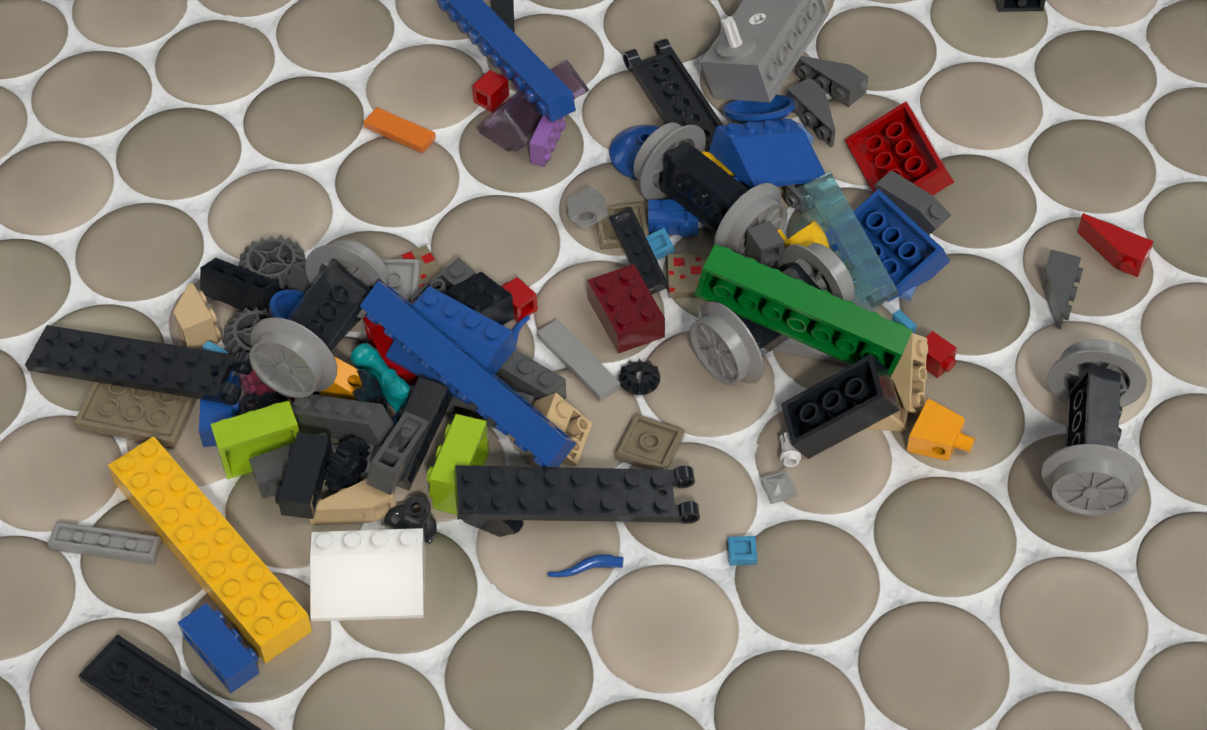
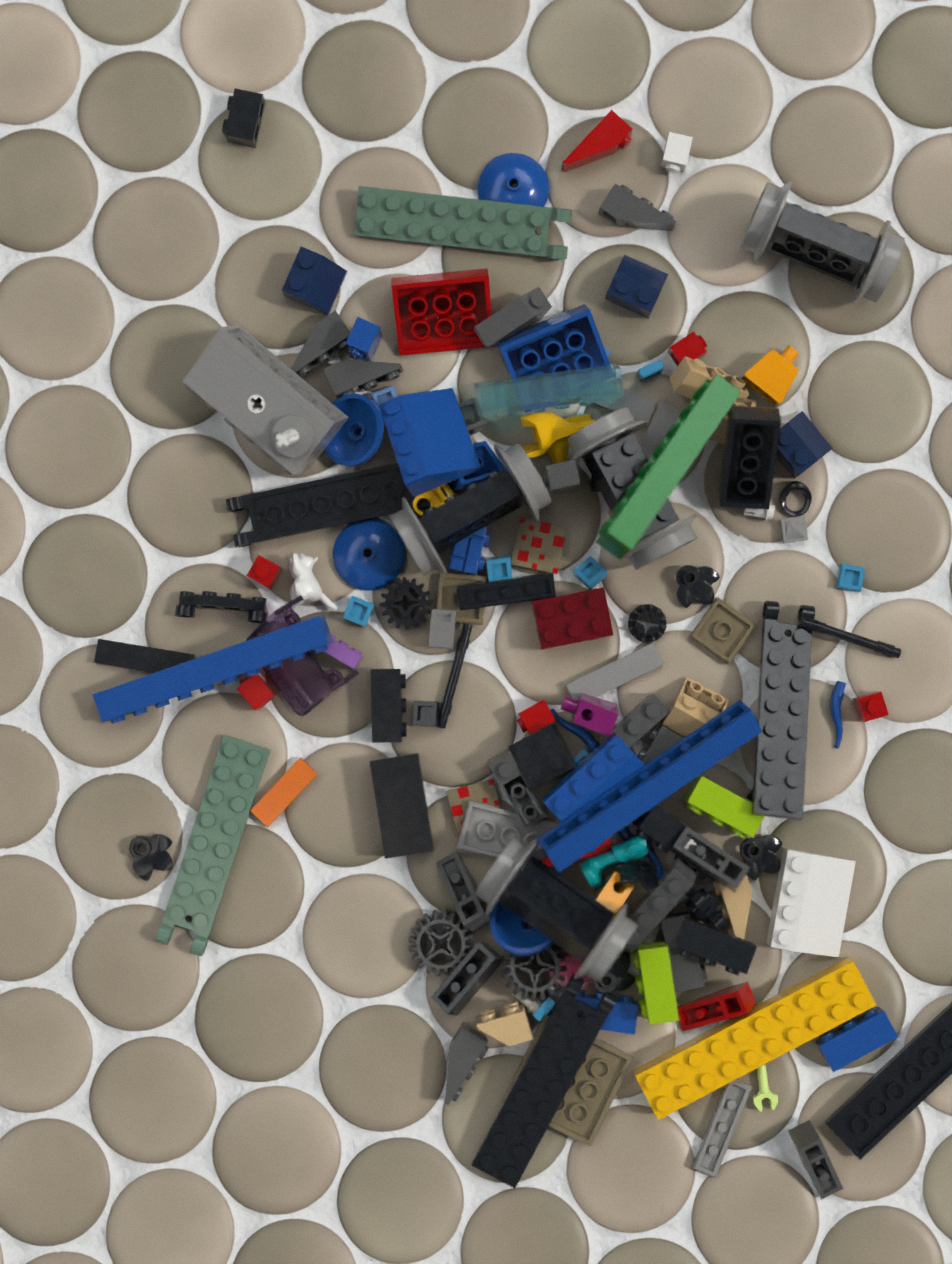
camera: 75 degrees left, 35 degrees up
(75, 632) = (815, 1159): none -> dark grey slope
(148, 301) = (463, 1052): none -> dark grey slope
(148, 575) = (764, 1091): none -> yellowish green bar
(239, 509) = (717, 1006): none -> red slope
(322, 49) = (154, 856): none -> black plate
(340, 89) = (214, 841): none -> sand green hinge
(404, 210) = (401, 805): none -> black brick
(500, 184) = (388, 705): none -> black brick
(500, 215) = (426, 713): none -> black plate
(510, 232) = (462, 646): none -> black piece
(533, 333) = (600, 718): none -> magenta torso
(567, 40) = (188, 602): none -> black plate
(587, 149) = (358, 611): none -> dark azure plate
(600, 104) = (305, 582): none -> white animal
(602, 588) = (870, 706): none -> red brick
(605, 75) = (264, 572): none -> red brick
(606, 178) = (405, 592): none -> black gear
(672, 587) = (878, 646): none -> black piece
(678, 317) = (590, 573): none -> dark azure plate
(690, 412) = (698, 588): none -> black plate
(817, 471) = (804, 491): none -> black piece
(847, 100) = (363, 340): none -> blue brick
(872, 469) = (800, 445): none -> dark blue slope
(891, 62) = (314, 281): none -> dark blue slope
(986, 301) = (636, 286): none -> dark blue slope
(991, 155) = (458, 221): none -> sand green hinge
(1042, 195) = (527, 172): none -> blue dish
(1136, 308) = (676, 152): none -> white brick

